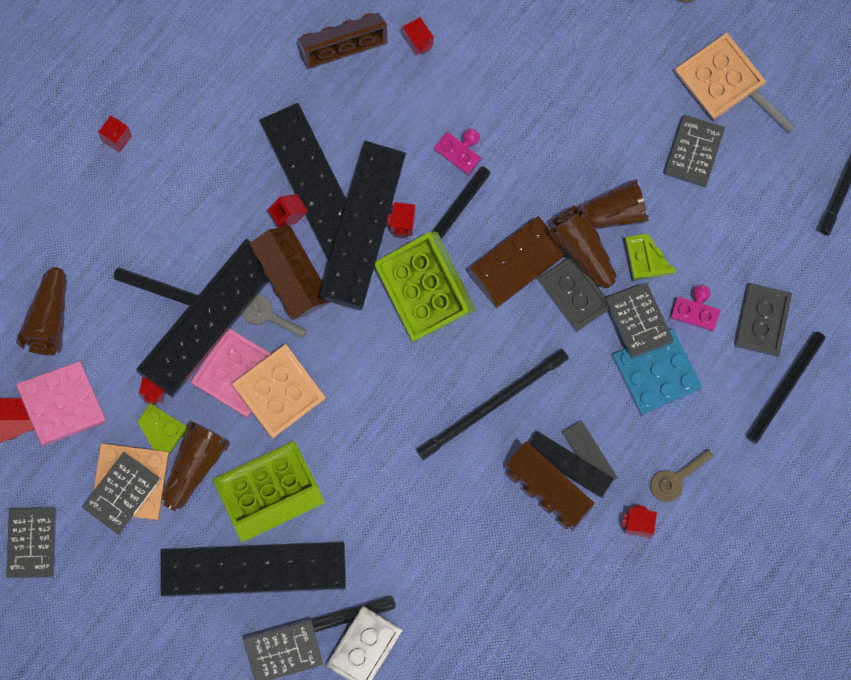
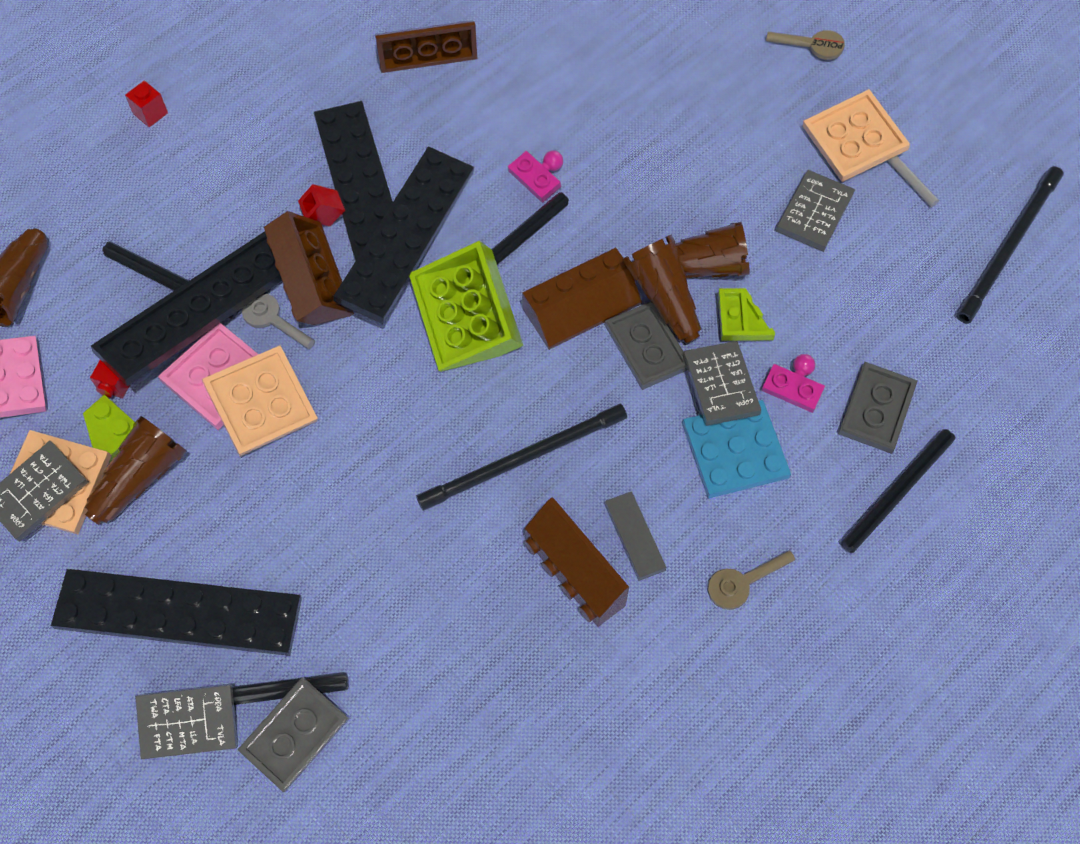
camera: 10 degrees right, 10 degrees down
(268, 491) = (218, 519): lime slope -> none
(402, 219) = (454, 233): red brick -> none
(418, 36) = (512, 52): red brick -> none
(572, 465) = (612, 544): black plate -> none
(639, 521) = (686, 626): red brick -> none

